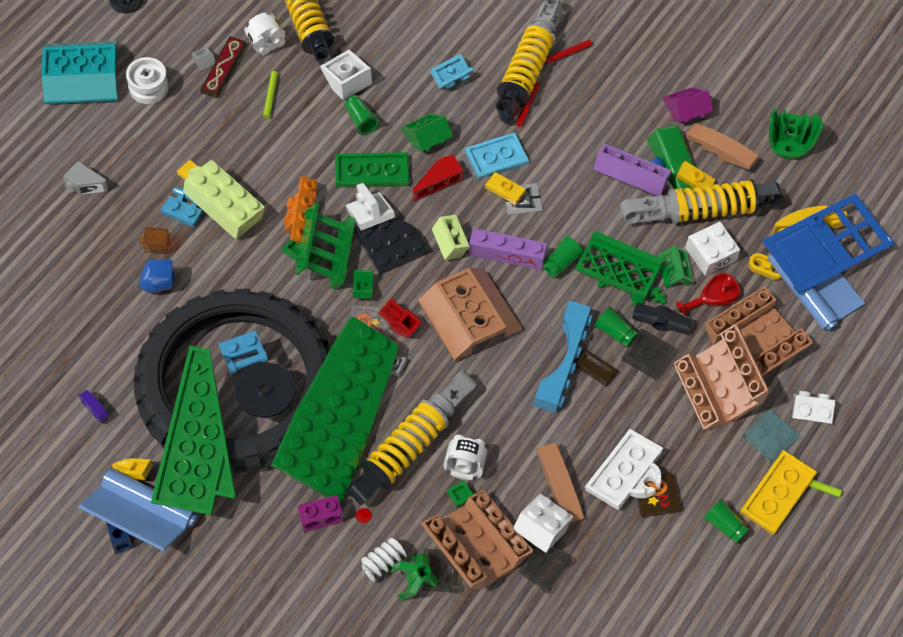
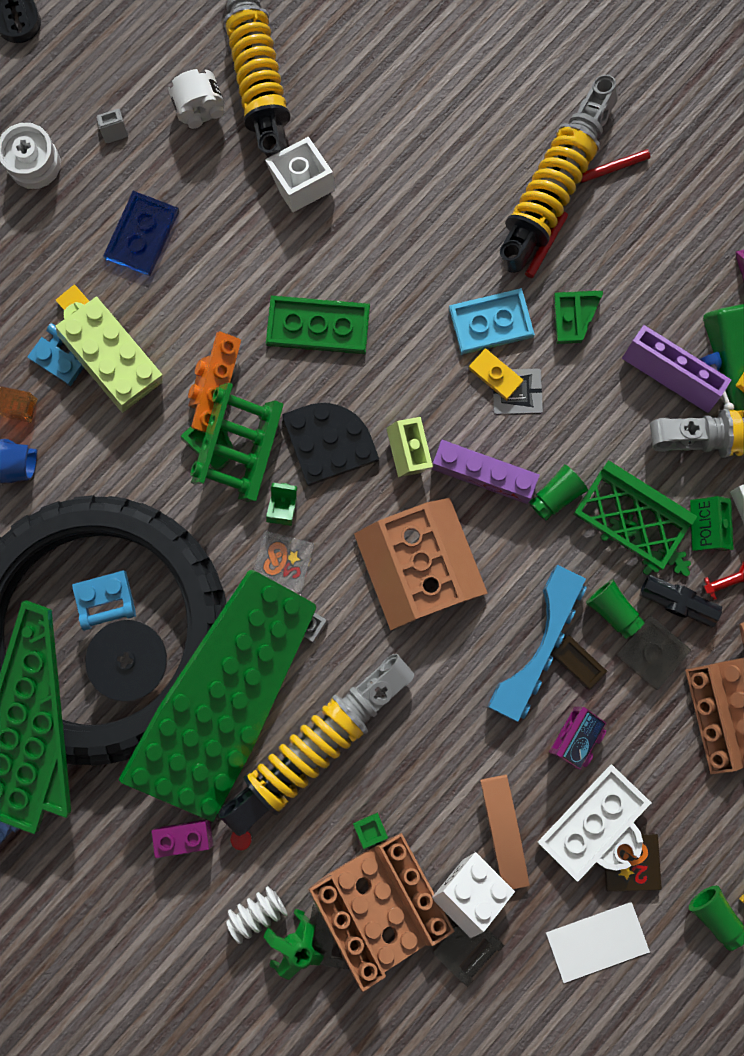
camera: 15 degrees right, 20 degrees up
(223, 67) = (136, 142): tile -> none
(234, 124) = (141, 233): none -> clear blue tile
(270, 94) = (195, 192): lime bar -> none
(361, 115) = (314, 243): green plant -> none
(369, 208) = (306, 389): white bracket -> none
(401, 321) = (324, 562): red brick -> none
(427, 131) = (400, 275): green slope -> none
(441, 175) = (411, 345): red slope -> none
(451, 71) = (446, 183): medium azure bracket -> none
(465, 457) = (383, 783): white brick -> none
(555, 145) = (574, 314): none -> green wing
(603, 411) = (578, 738): none -> slope
(641, 554) = (597, 942): none -> white sticker

